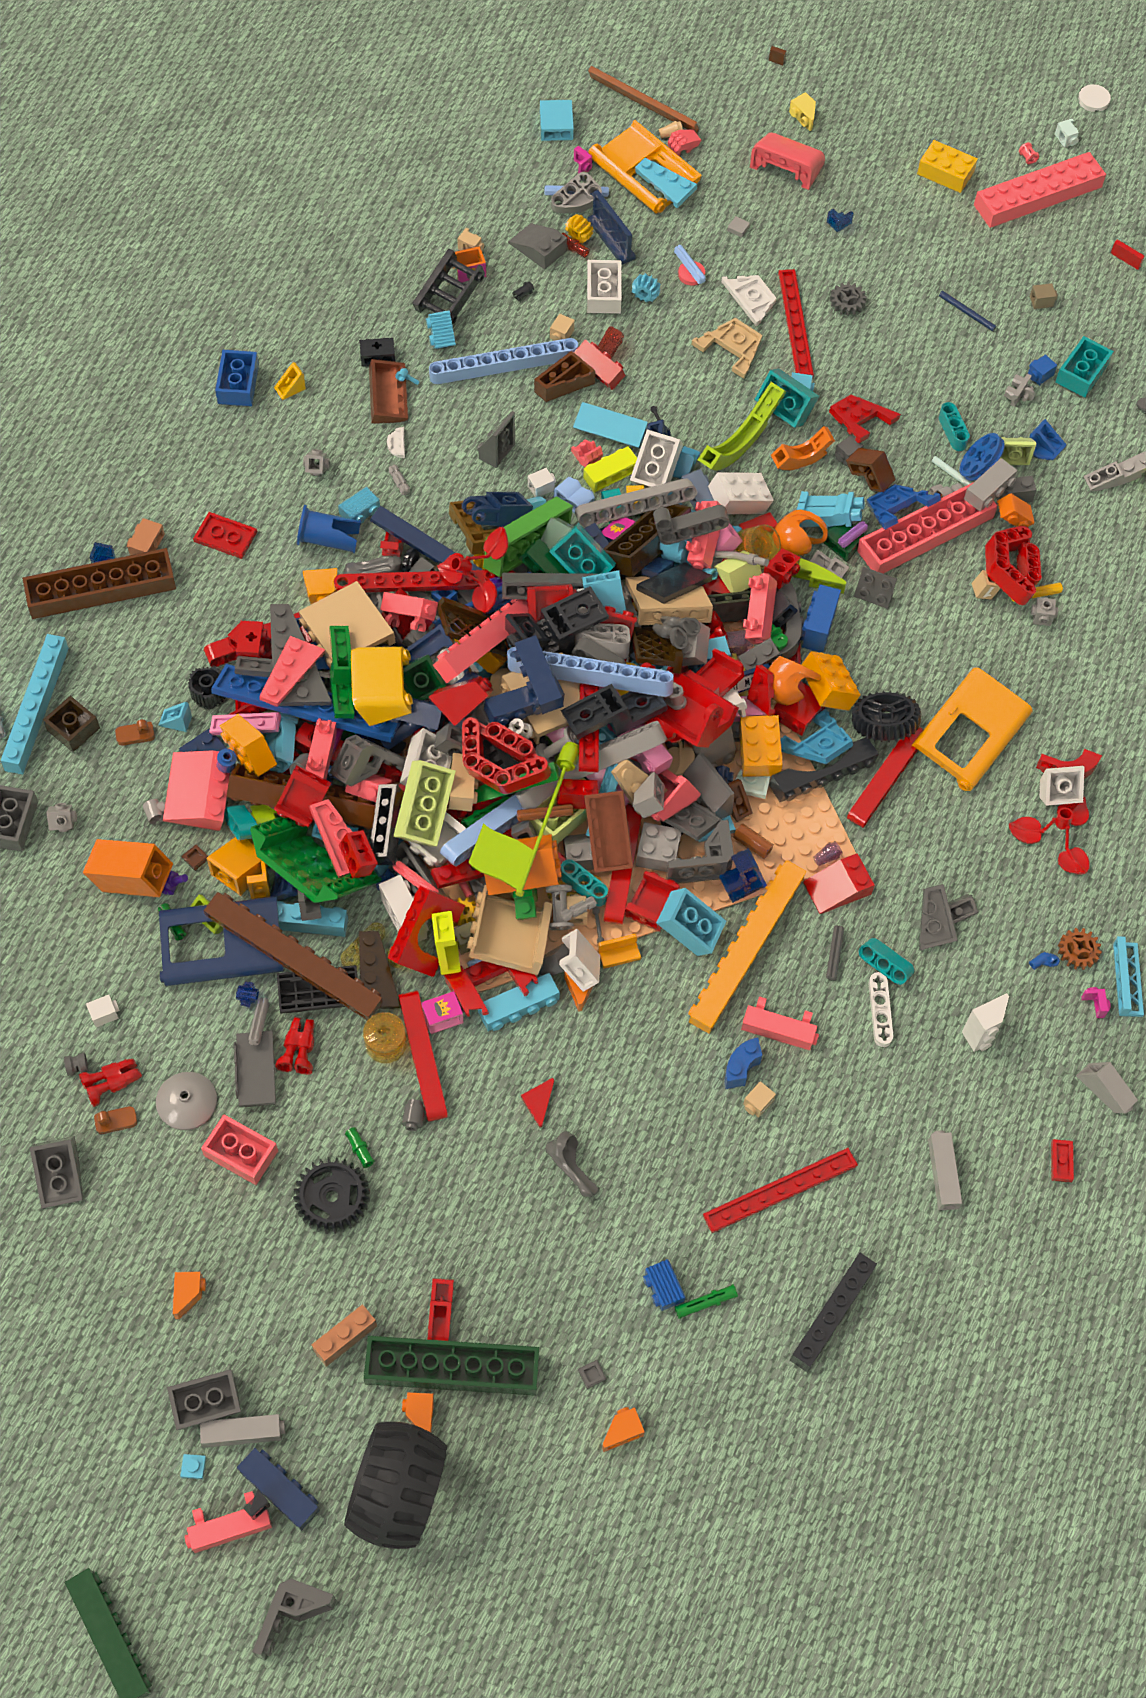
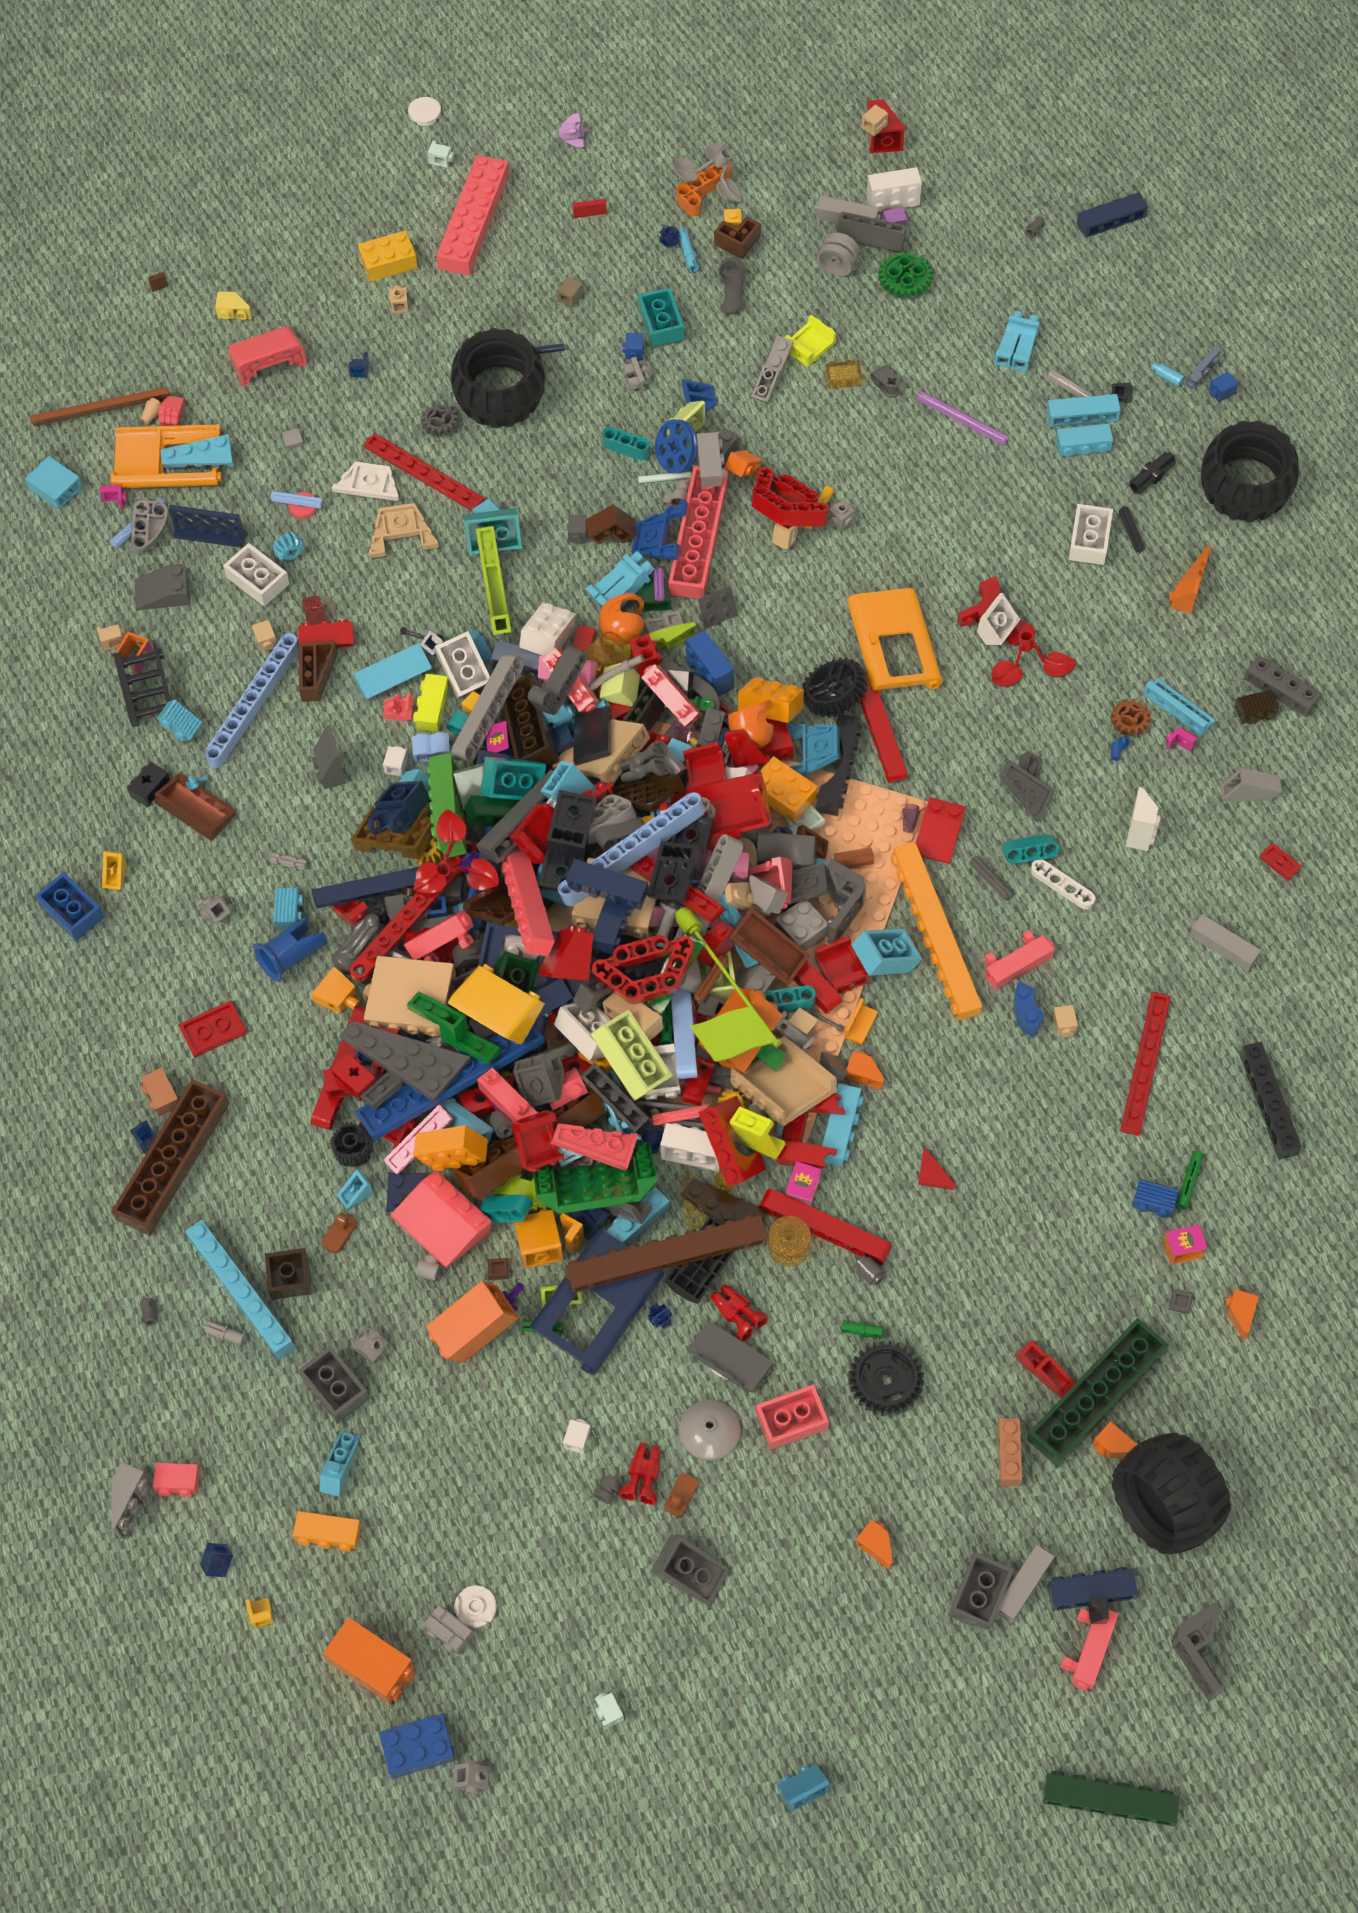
camera: 45 degrees left, 0 degrees up
(193, 1466) = (1022, 1641): medium azure plate -> none
(226, 760) = (446, 1175): blue brick -> none
(258, 1021) = (693, 1324): light grey axle -> none
(290, 668) = (417, 1063): coral wing -> none
(358, 854) = (627, 1137): red brick -> none
(396, 443) = (250, 837): white tile -> none
(521, 292) = (197, 634): black pin -> none
(521, 727) = (629, 932): white bush -> none
(524, 626) = (550, 868): black slope -> none
(563, 1153) = (991, 1188): dark grey hair -> none
(574, 245) = (196, 564): clear red pin -> none
(578, 909) = (808, 1020): light grey axle -> none
(579, 228) = (181, 548): yellow gear -> none
(582, 962) = (856, 1053): white panel -> none
(641, 1338) = (1184, 1244): none -> piece
(744, 878) = (883, 889): clear blue brick -> none
(805, 454) = (552, 557): orange arch -> none
(856, 411) = (548, 496): red wing -> none
(920, 277) = (491, 350): none -> black tyre
(921, 197) = (398, 296): none -> tan brick
(1029, 153) = (431, 194): coral bush -> none

